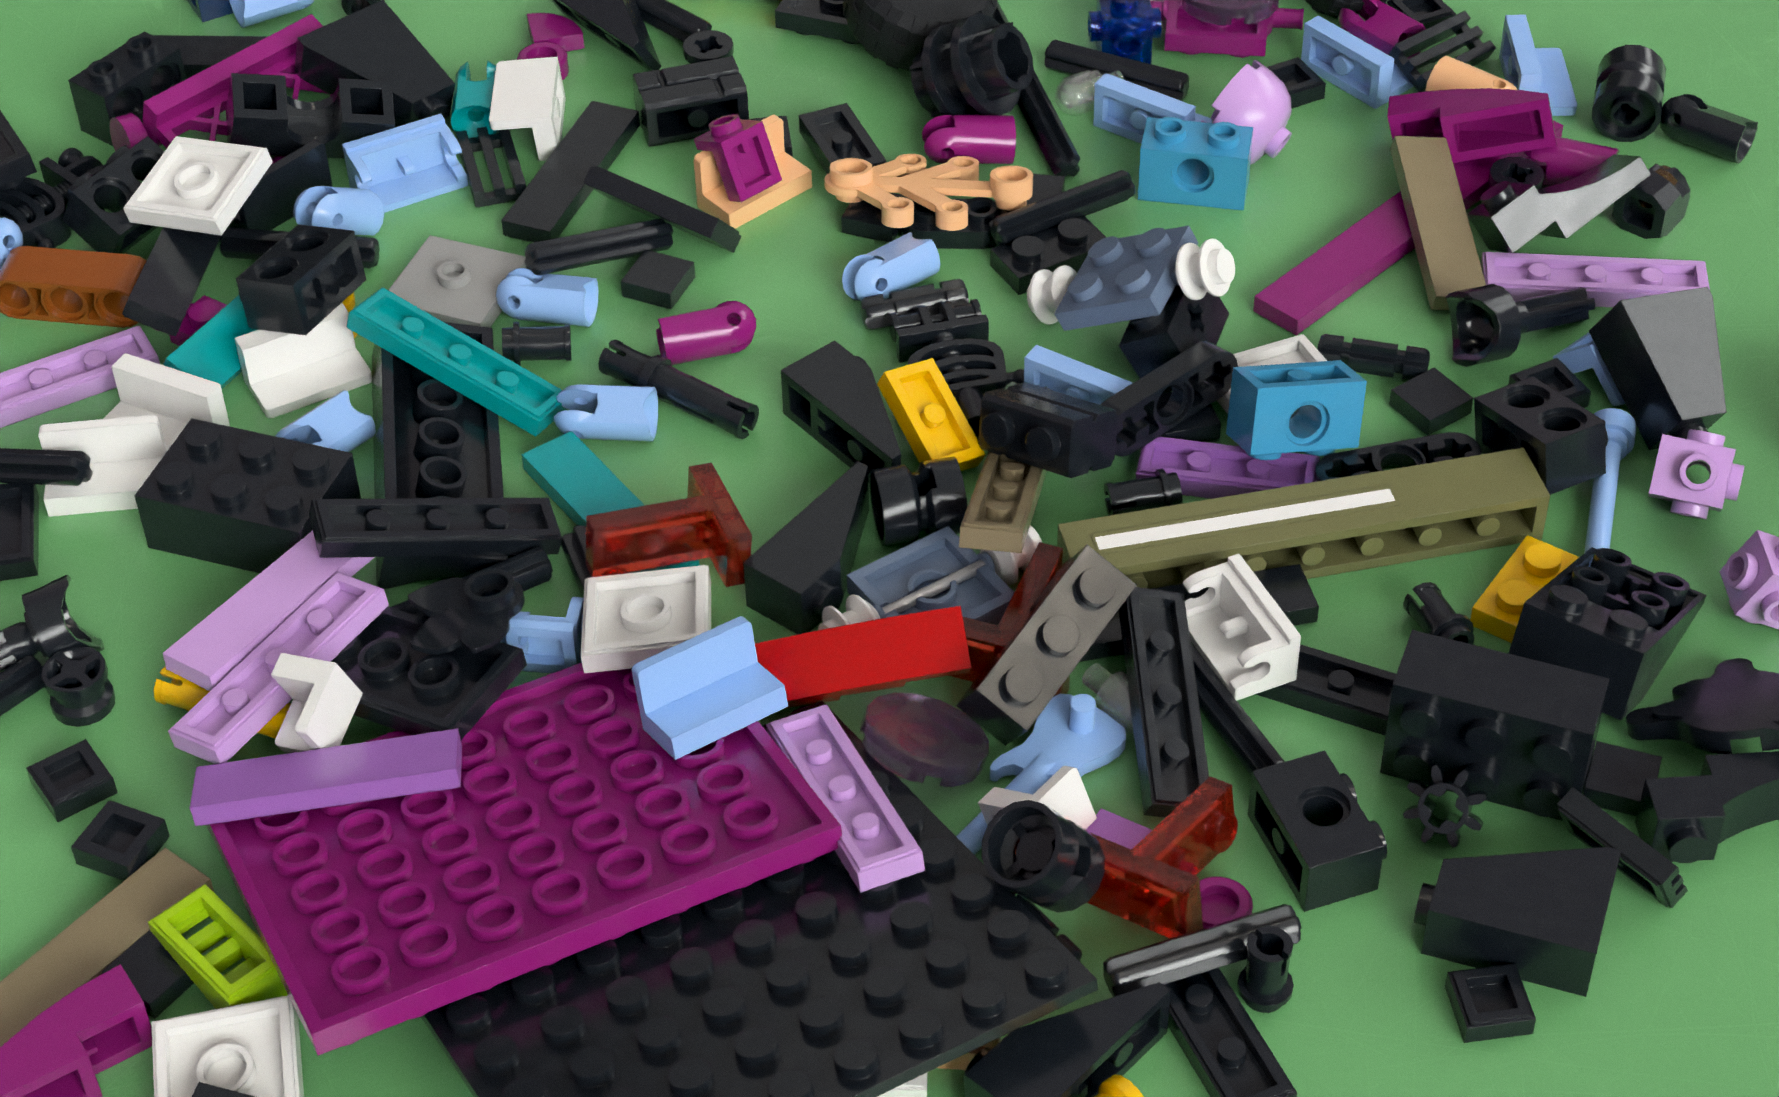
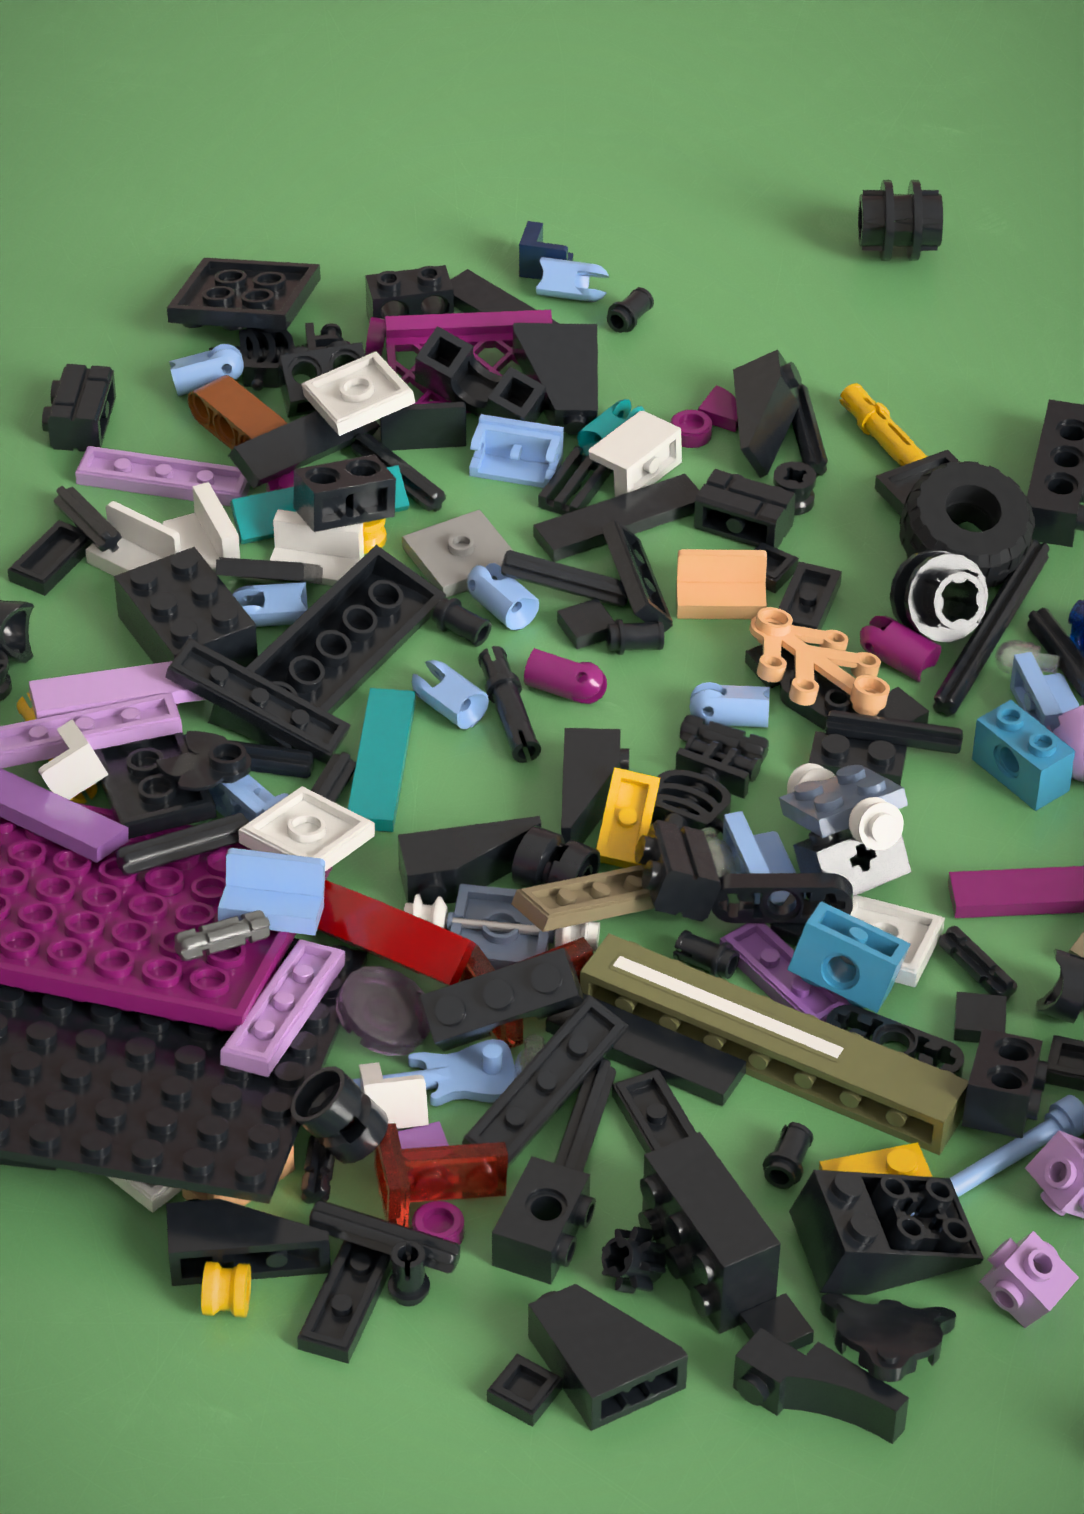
camera: 40 degrees right, 0 degrees up
(295, 398) = (269, 570): none -> black tile
(340, 209) = (436, 460): light blue piece -> none
(456, 360) = (391, 602): teal tile -> none
(532, 710) = (180, 844): none -> black axle
(673, 532) = (381, 788): clear red bracket -> none
(711, 763) = (221, 935): none -> axle
(713, 268) = (634, 636): none -> black pin
(741, 155) = (710, 567): magenta bracket -> none
(1241, 629) = (641, 1072): white hinge -> none
(1637, 858) = (708, 1361): black tile -> none

